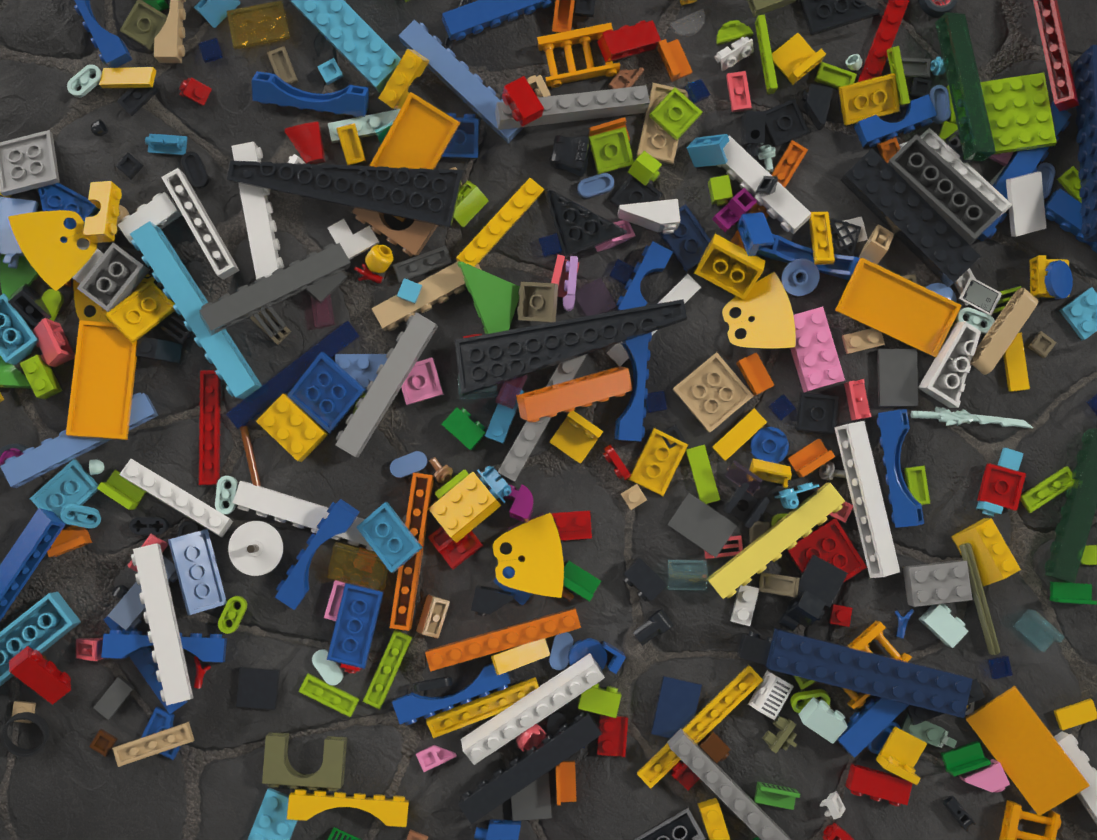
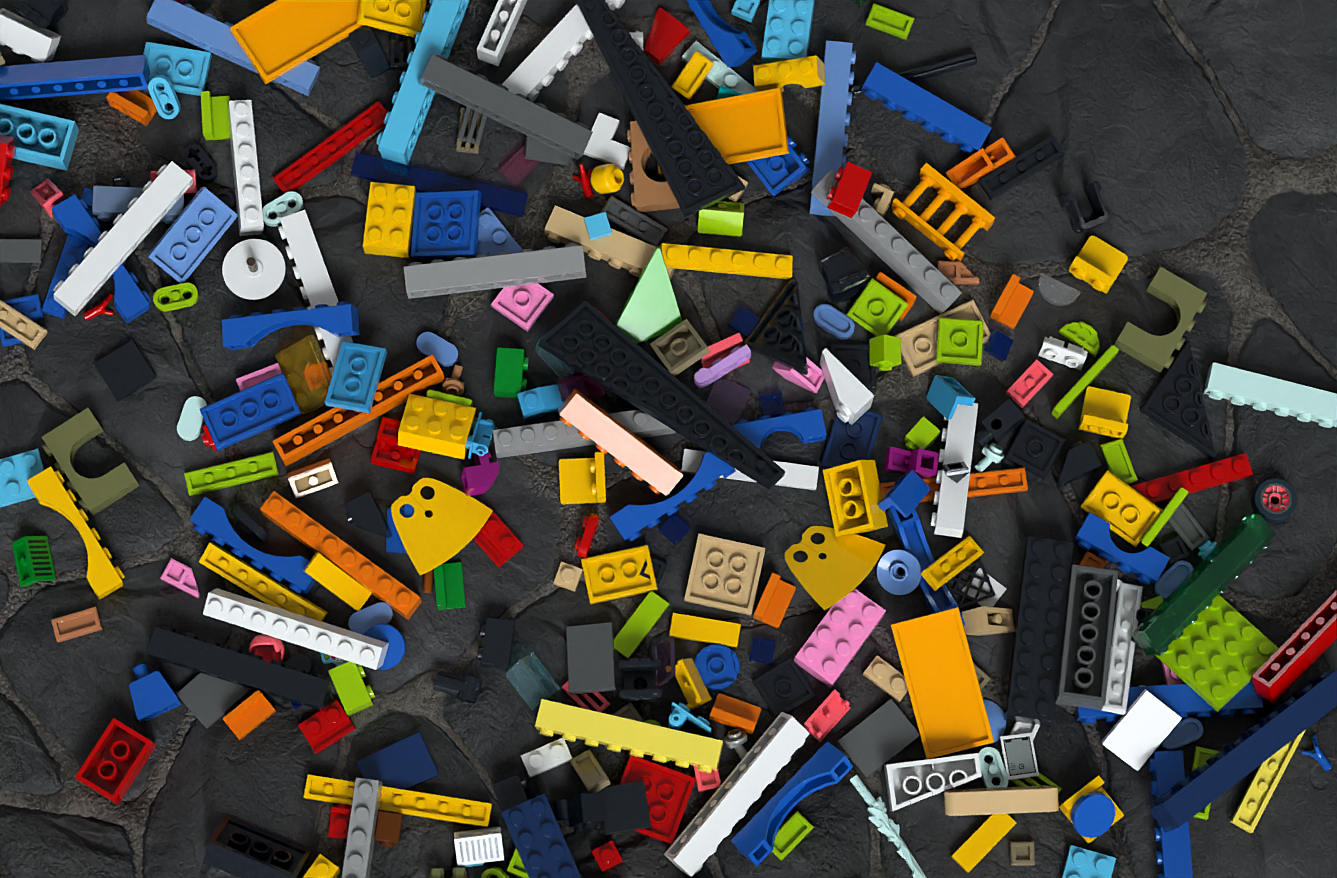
camera: 50 degrees right, 10 degrees down
(95, 467) = (218, 77): light aqua hinge -> none
(250, 456) = (334, 203): dark orange bar -> none
(329, 695) = (166, 439): lime tile -> none
(617, 659) = (401, 672): blue panel -> none
(628, 40) = (991, 246): red brick -> none
(854, 62) = (1145, 469): light aqua hinge -> none

